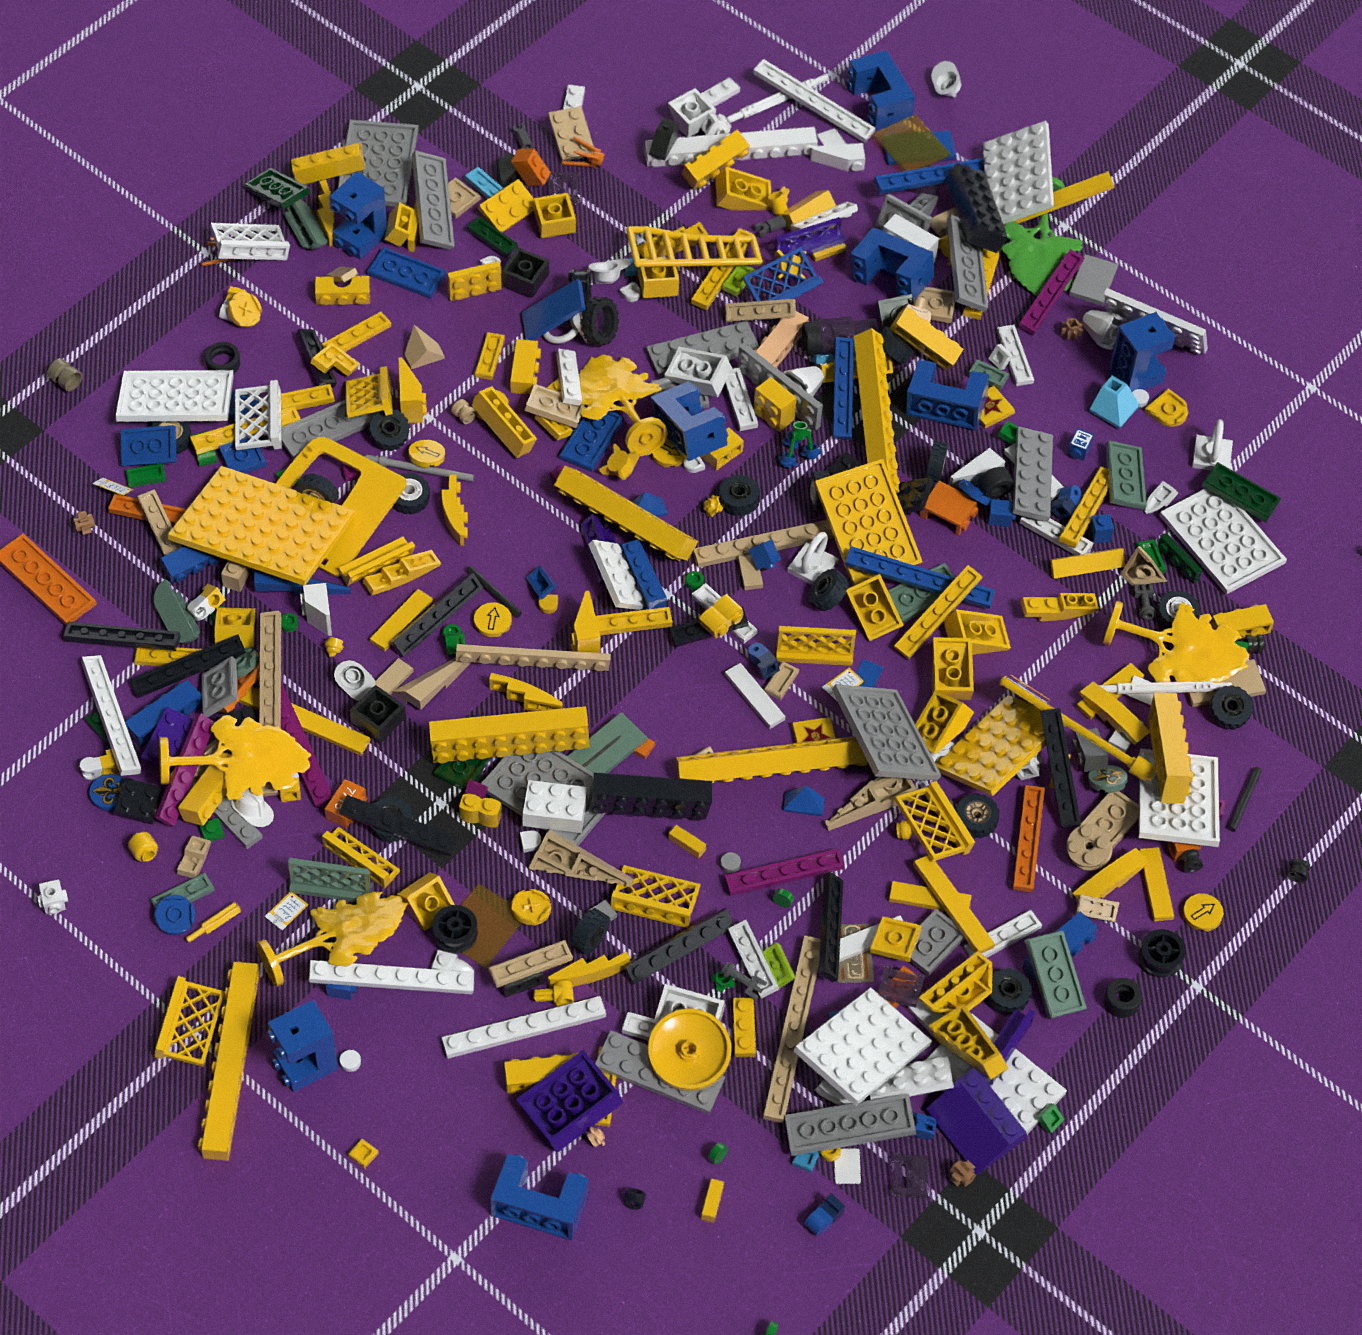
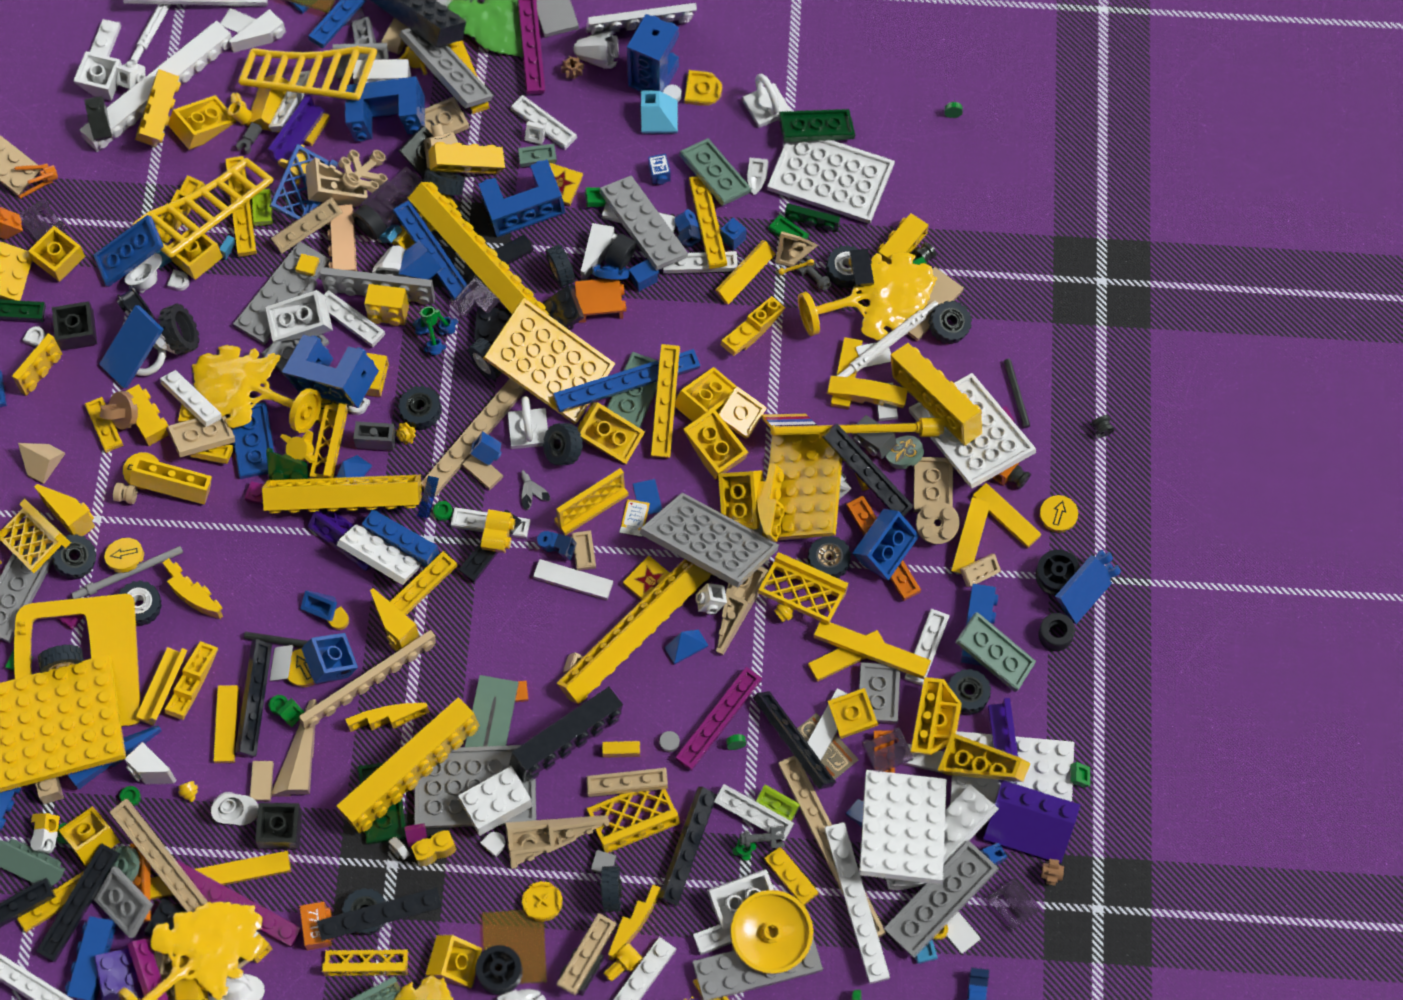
camera: 35 degrees left, 10 degrees up
(454, 793) = (399, 848): none -> white tile
(478, 604) = (281, 662): none -> white sticker
(508, 350) = (120, 410): none -> medium nougat tile
(516, 621) = (329, 658): none -> blue brick
(598, 468) = (285, 467): none -> dark green wing
(609, 244) = (128, 250): none -> blue tile
(649, 477) = (335, 441): none -> yellow fence
(671, 868) = (627, 782): none -> tan tile
(685, 491) = (374, 436): none -> dark grey brick
(687, 290) = (227, 246): none -> dark azure tile
(691, 562) = (428, 496): none -> clear blue piece
(737, 338) = (307, 265): none -> yellow tile
(776, 608) = (531, 488): none -> light grey piece
(777, 1082) = (857, 903): none -> white plate
(808, 297) = (327, 182): none -> tan wedge
(821, 297) = (352, 180): none -> tan plant
(824, 389) = (419, 262): none -> blue slope
(850, 440) = (475, 294): none -> clear purple plate
(852, 779) = (711, 598): none -> white brick
(856, 188) = (302, 56): none -> yellow bar
(910, 431) = (514, 250): none -> black tile
(958, 737) = (769, 507): none -> yellow slope
(994, 661) = (741, 412): none -> plate
(1031, 833) = (886, 543): none -> blue slope
(1148, 588) = (781, 271): none -> yellow hinge
(1177, 978) = (1087, 585): none -> blue tile
(1185, 615) = (861, 267): none -> black tile

